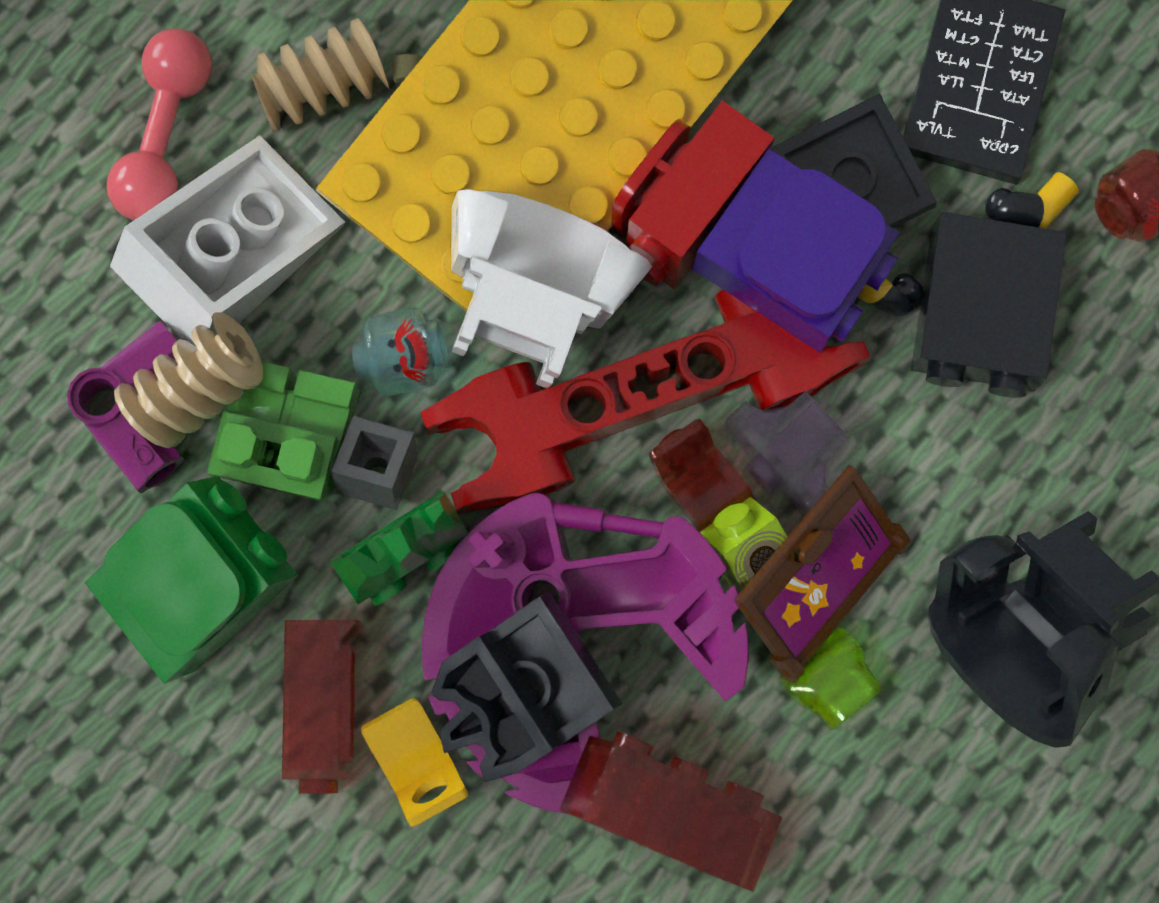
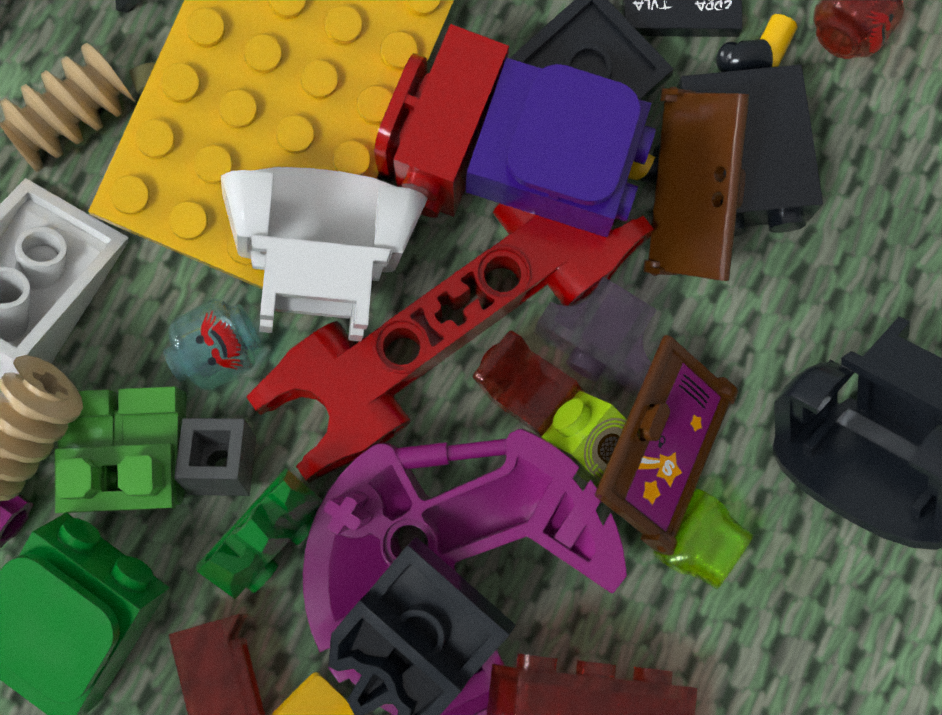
camera: 15 degrees left, 0 degrees up
(935, 286) = (697, 143): none -> reddish brown door

